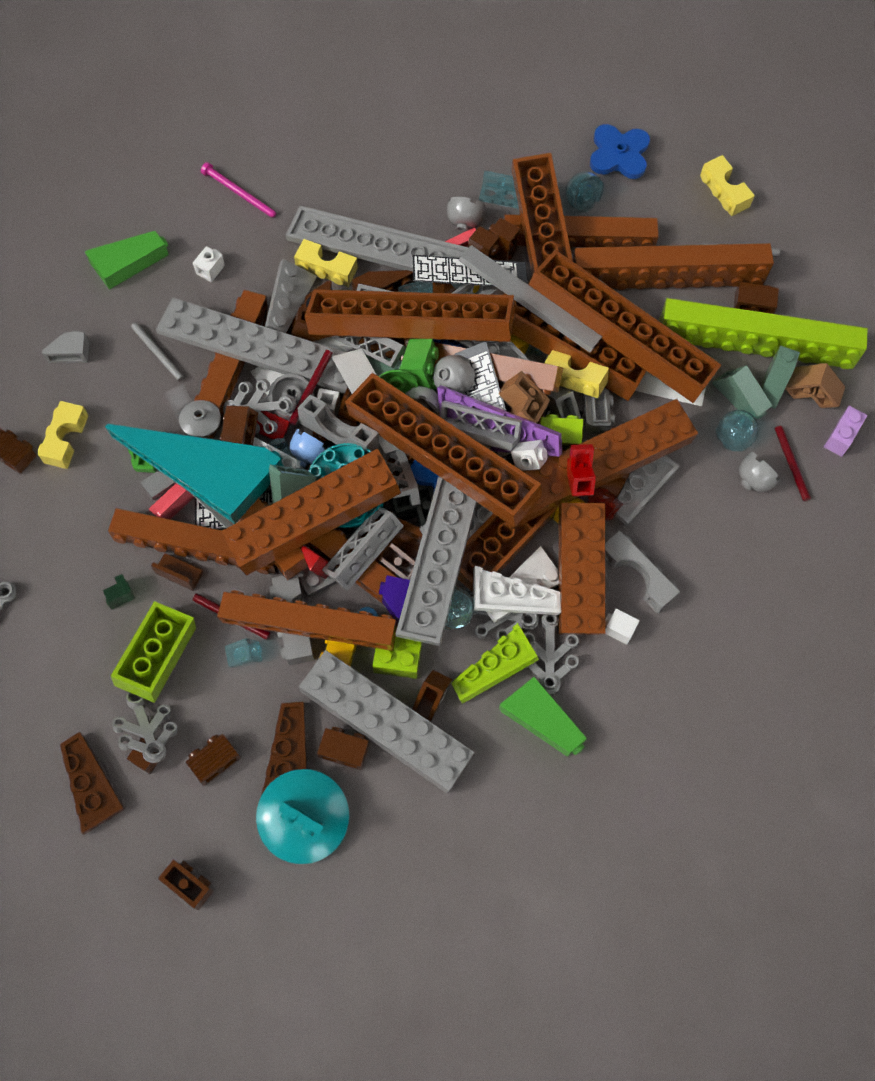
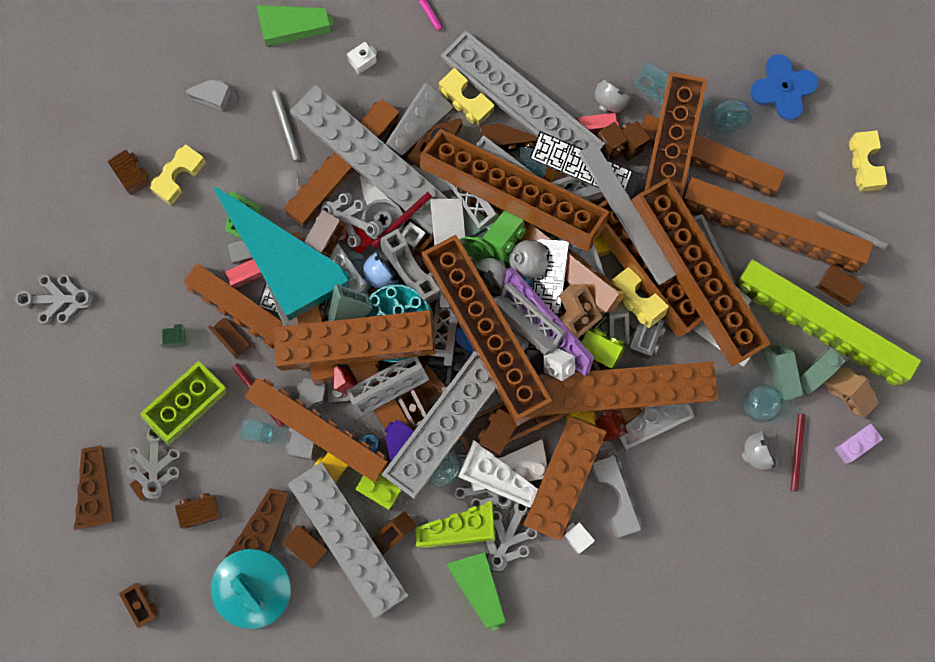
camera: 20 degrees right, 10 degrees up
(203, 425) = (300, 218): light grey dish -> none
(496, 548) = (498, 432): none -> reddish brown brick
(580, 470) = (595, 398): red brick -> none

